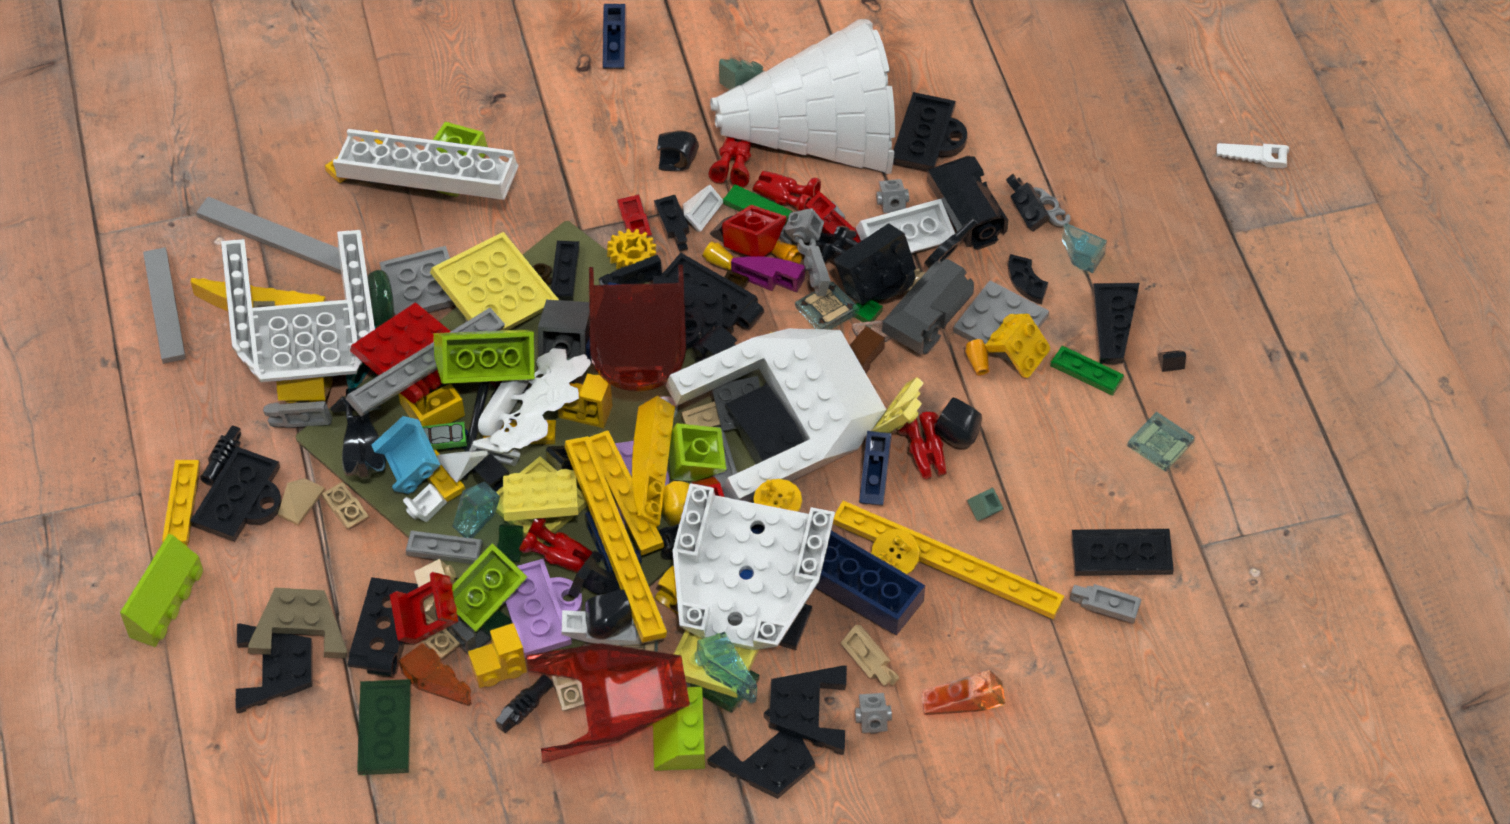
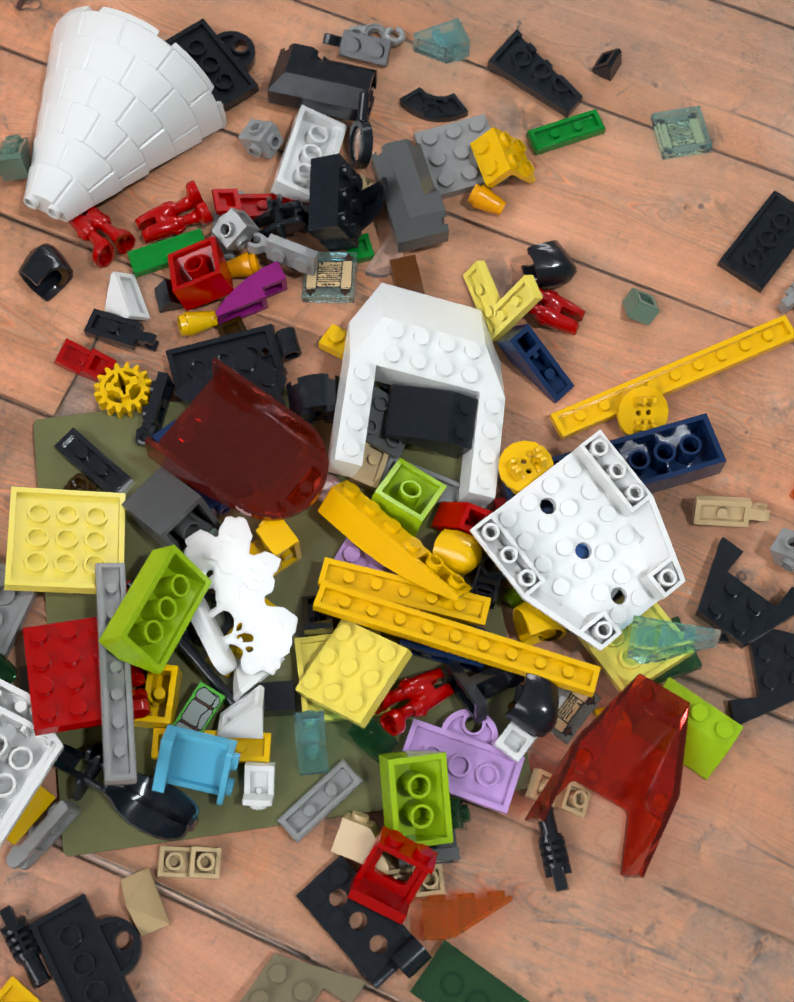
camera: 55 degrees left, 15 degrees up
(500, 659) = (491, 838): yellow brick -> none

